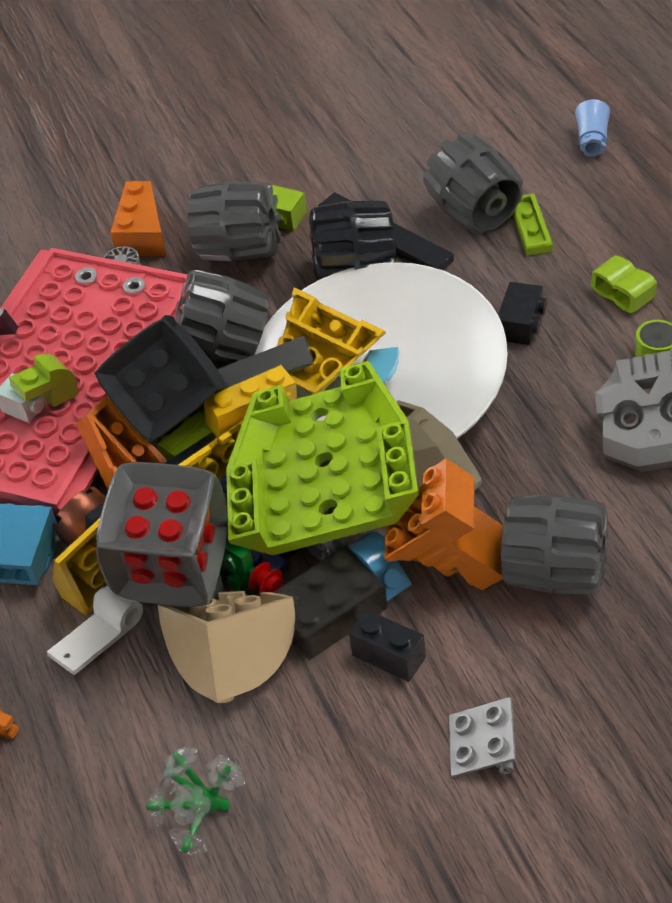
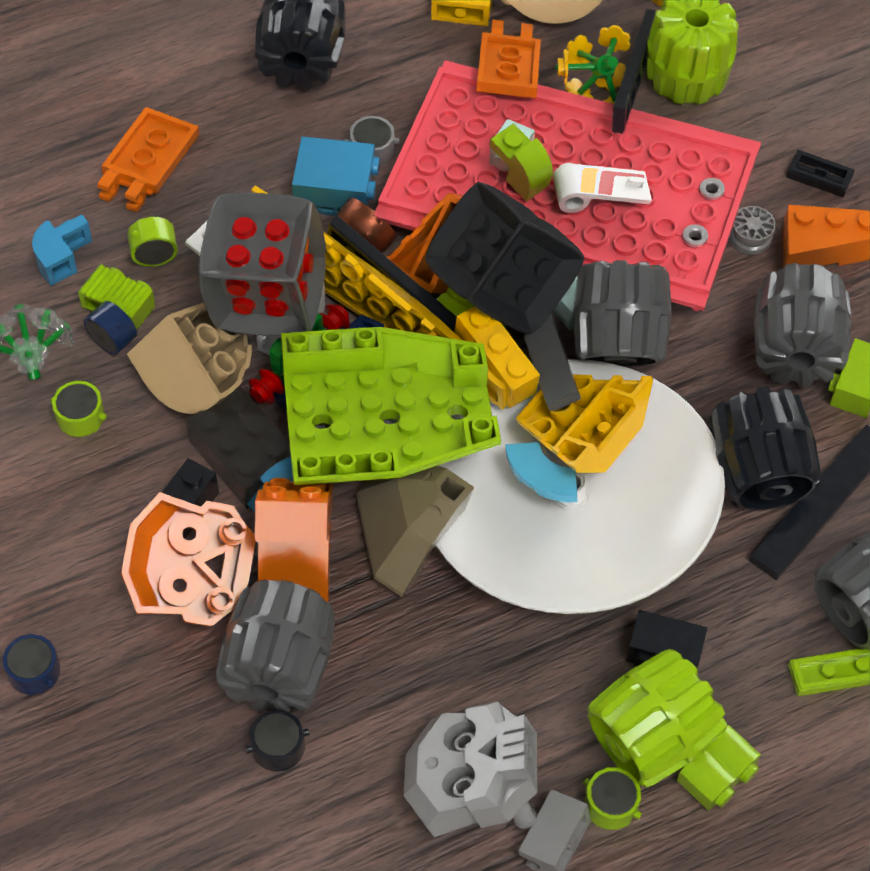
camera: 80 degrees right, 10 degrees up
(65, 797) = (55, 248): none -> dark azure brick
(71, 231) = (819, 177): none -> black tile
(72, 696) = (152, 241): none -> lime piece
(75, 340) = (581, 183): none -> white door
(136, 728) = (111, 285): none -> lime brick
(178, 724) = (110, 327): none -> dark blue piece
(272, 752) = (78, 408): none -> piece
(466, 619) = (160, 555): none -> brick
(483, 738) = (70, 585): light grey hinge -> none
(573, 763) = (31, 664): none -> piece
(598, 300) = (656, 718): none -> lime wheel
(633, 559) = (277, 740): none -> piece

